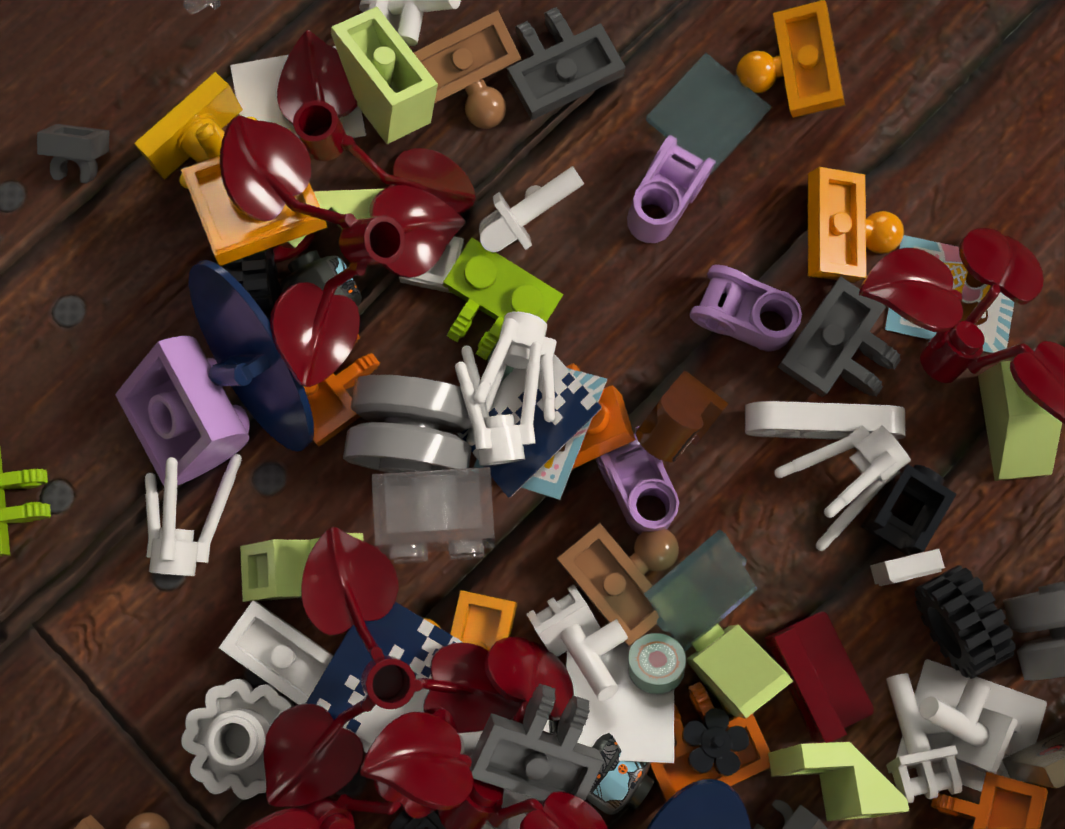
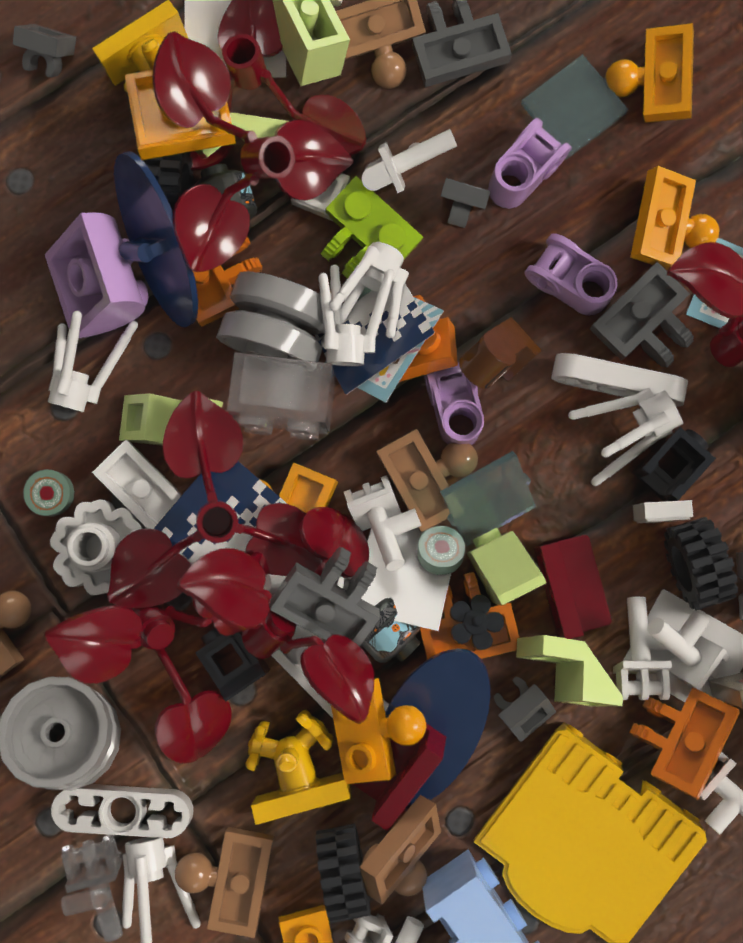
camera: 20 degrees right, 5 degrees up
(168, 682) = (48, 493): none -> sand green tile
(603, 241) = (464, 198): none -> dark grey tile

